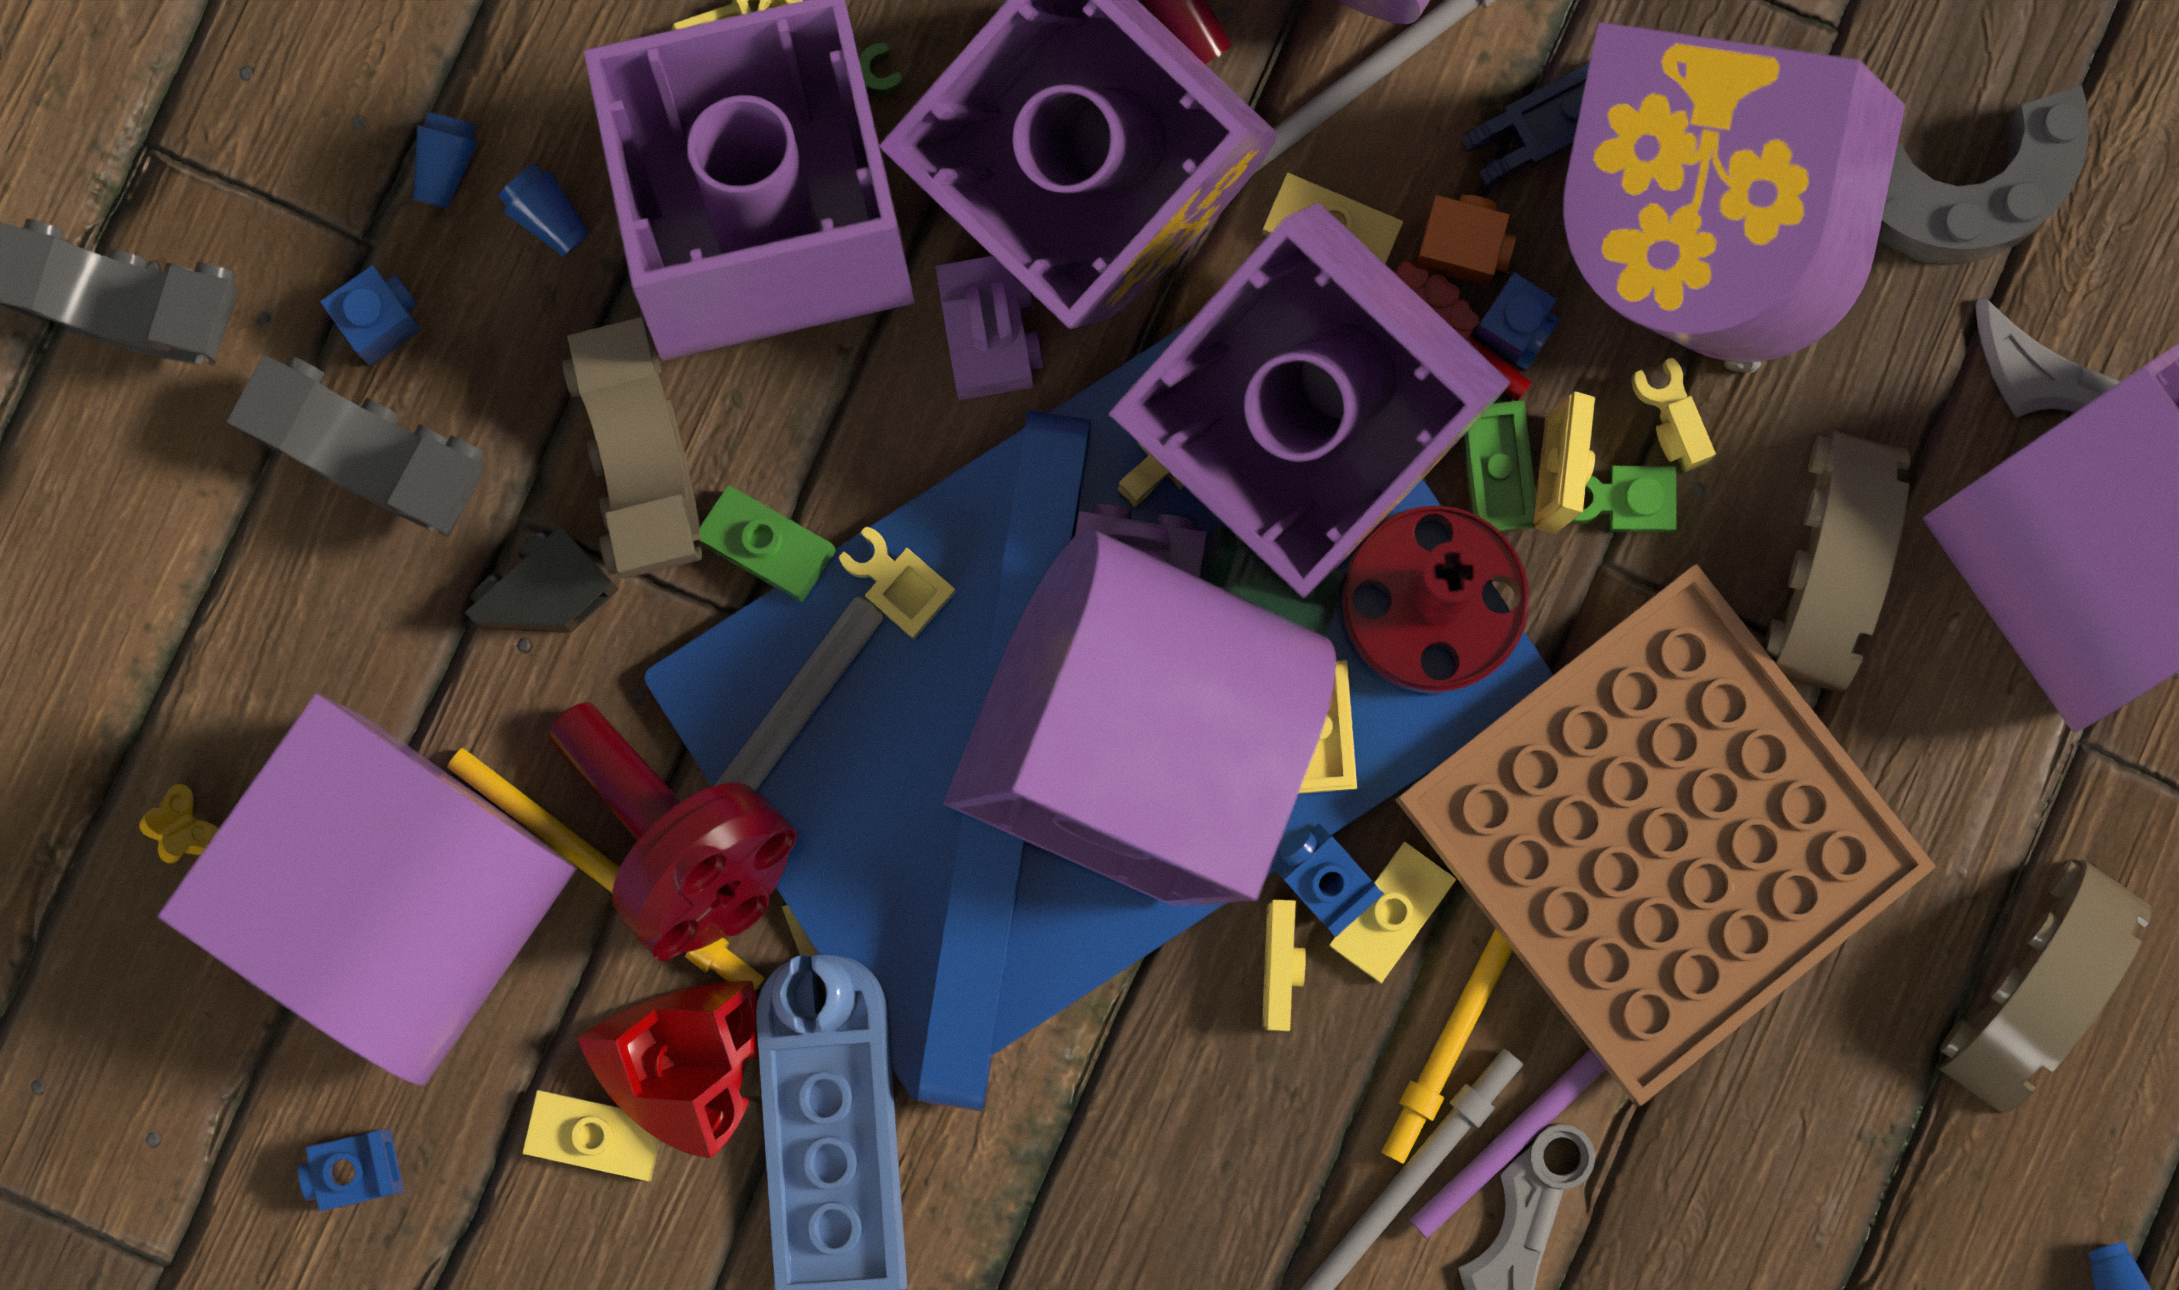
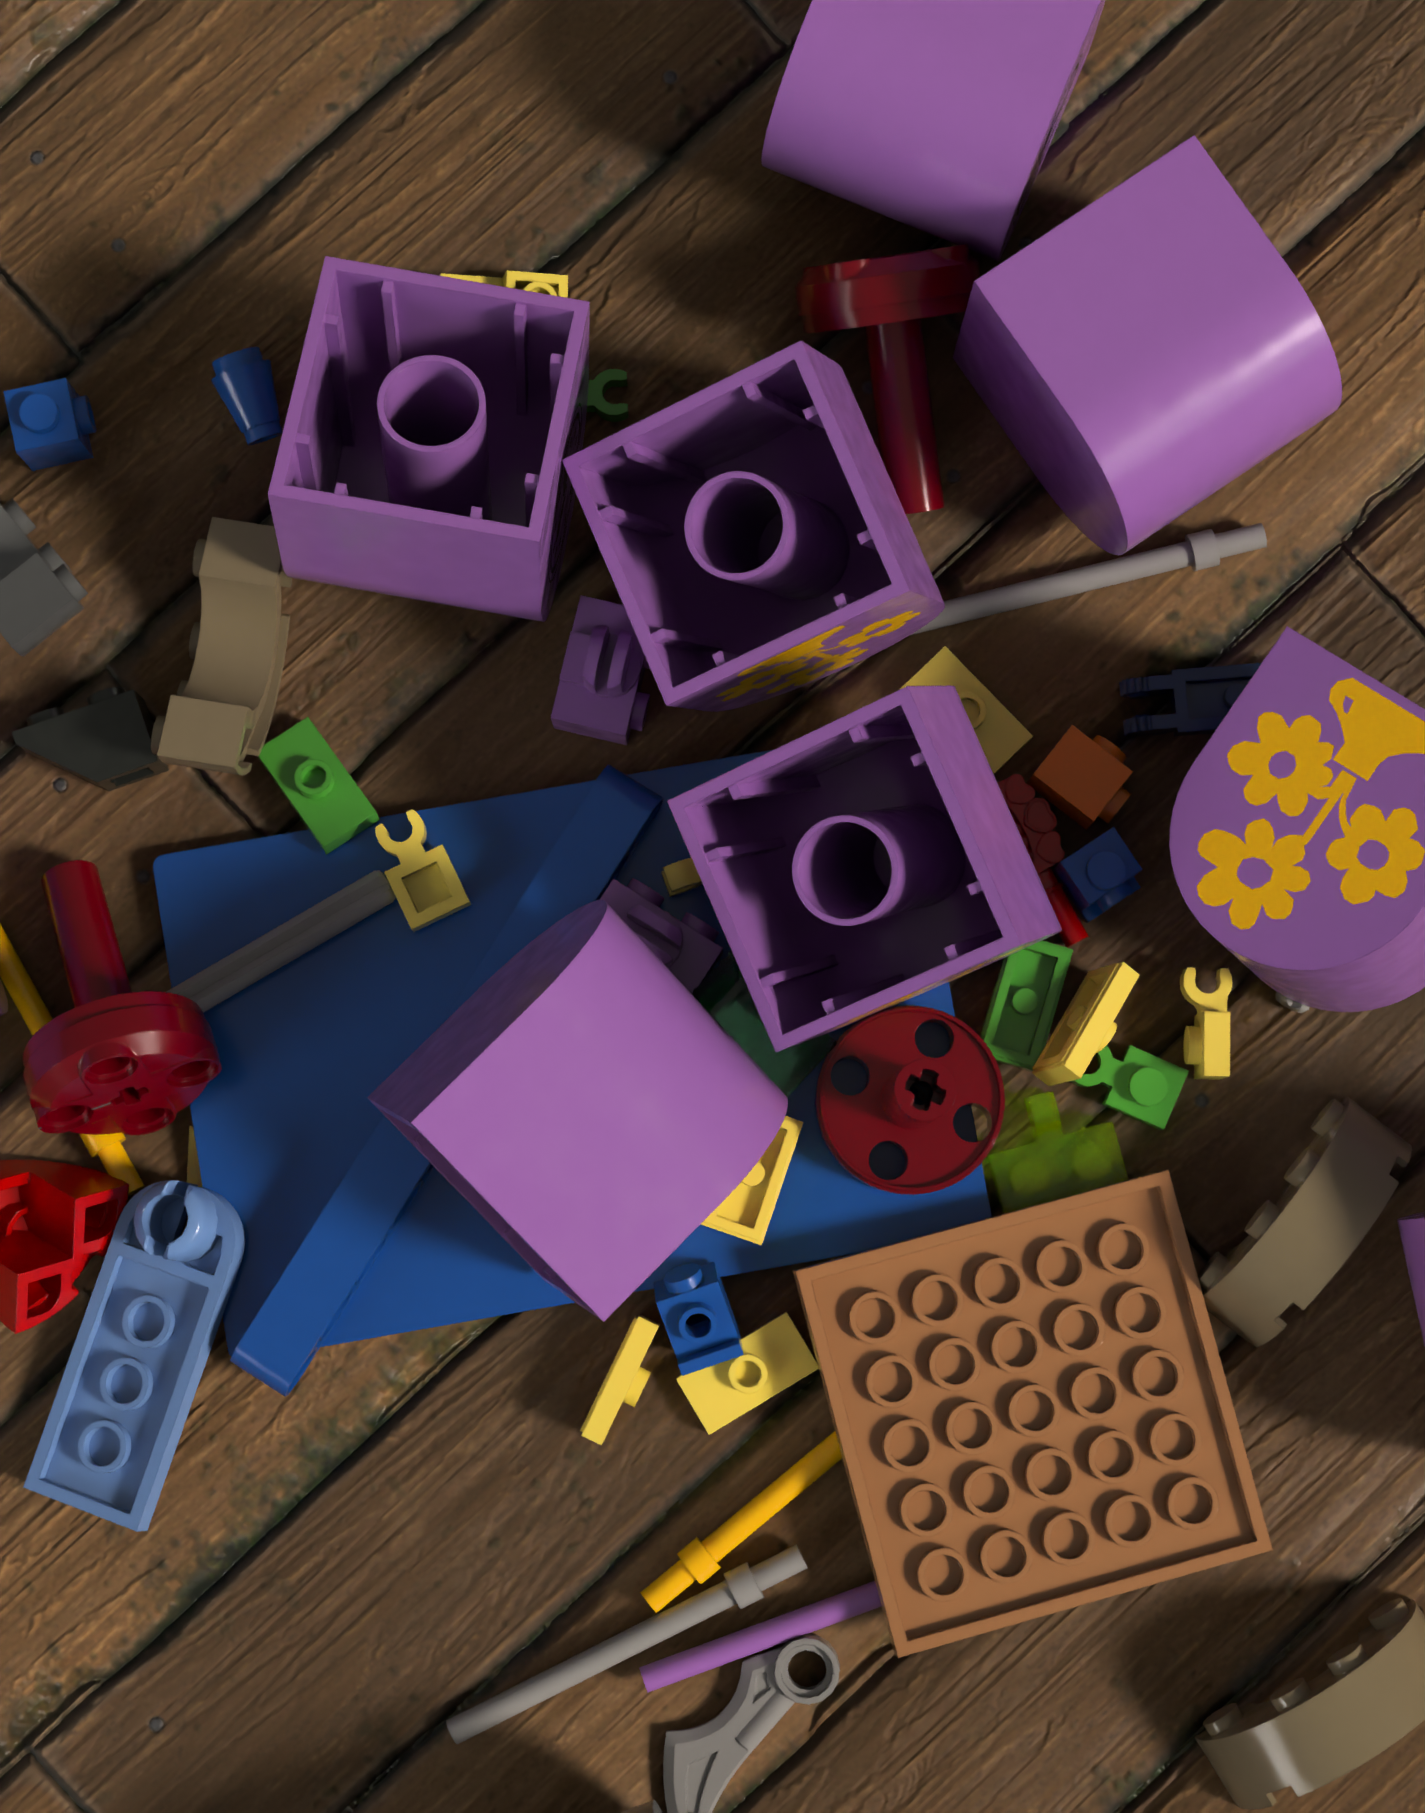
camera: 20 degrees right, 0 degrees up
(442, 158) = (177, 308): blue cone -> none
(1589, 600) = (1056, 1161): none -> clear neon green plate

